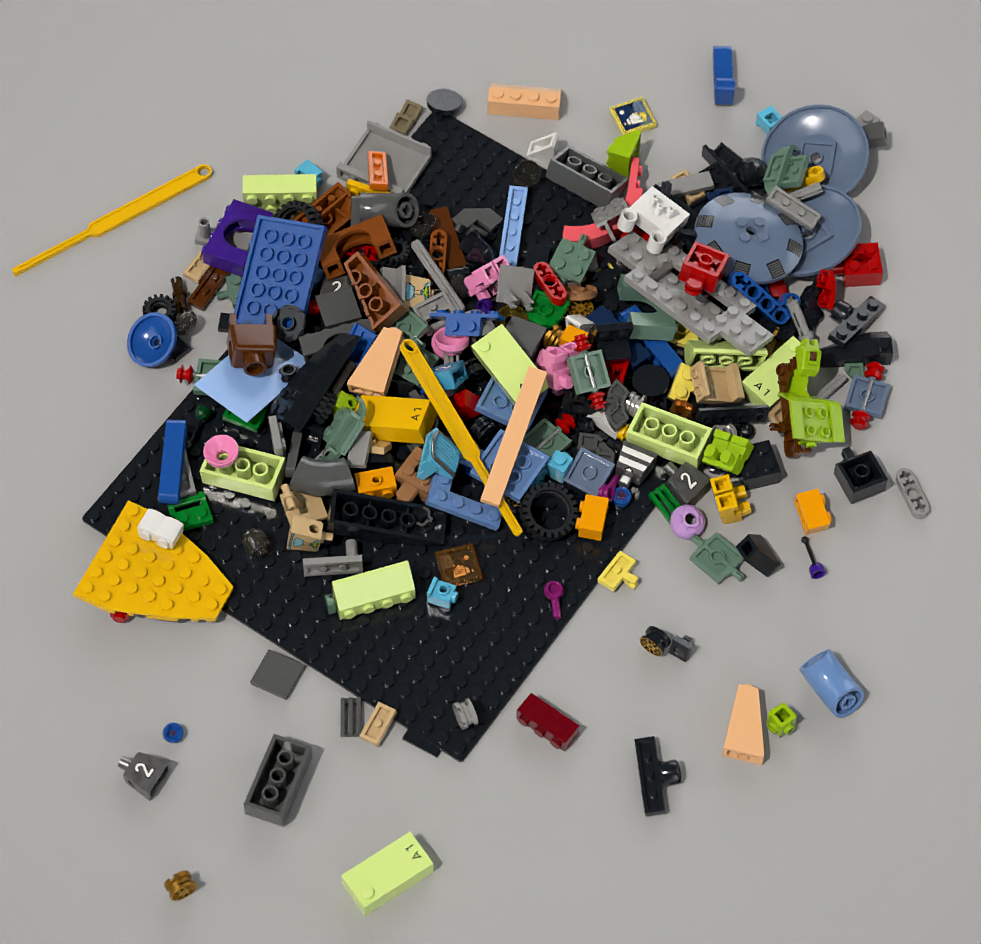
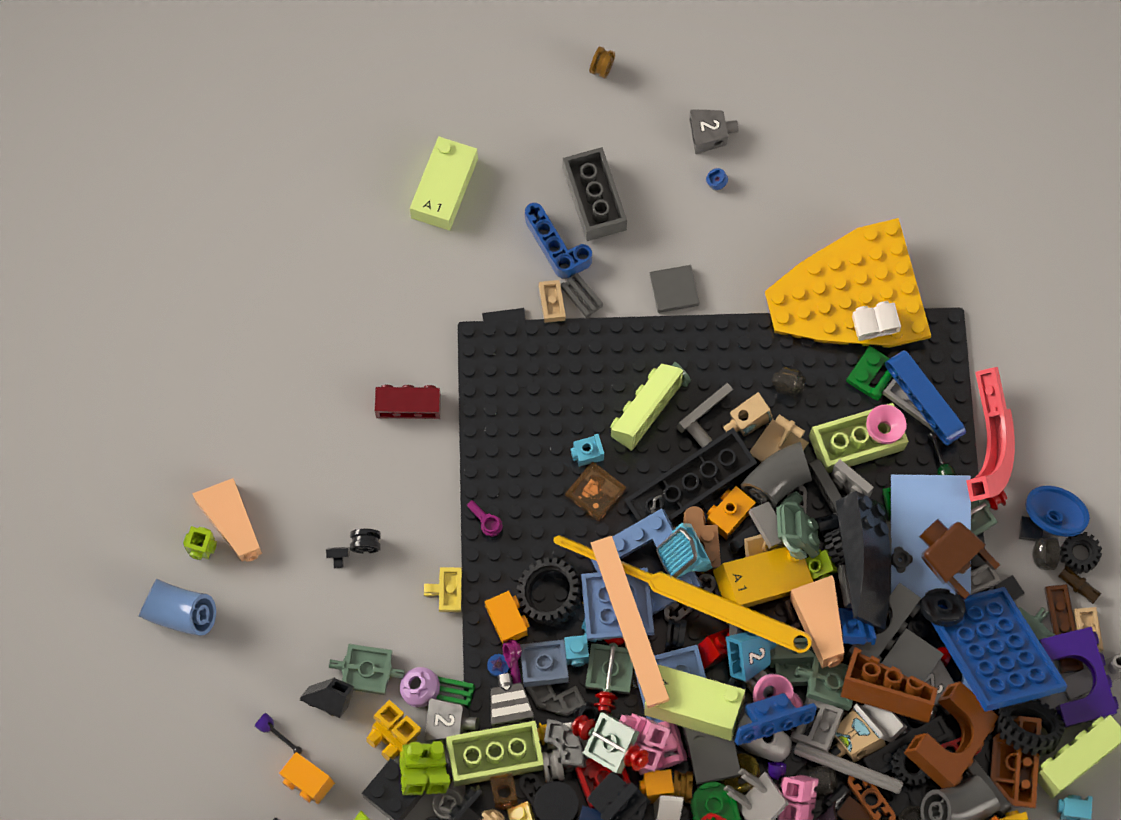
camera: 145 degrees right, 10 degrees up
(153, 401) = (1000, 438): none -> coral arch
(338, 771) = (552, 239): none -> blue beam
(465, 713) = (480, 352): light grey wheel -> none
(654, 775) = (280, 419): black plate -> none

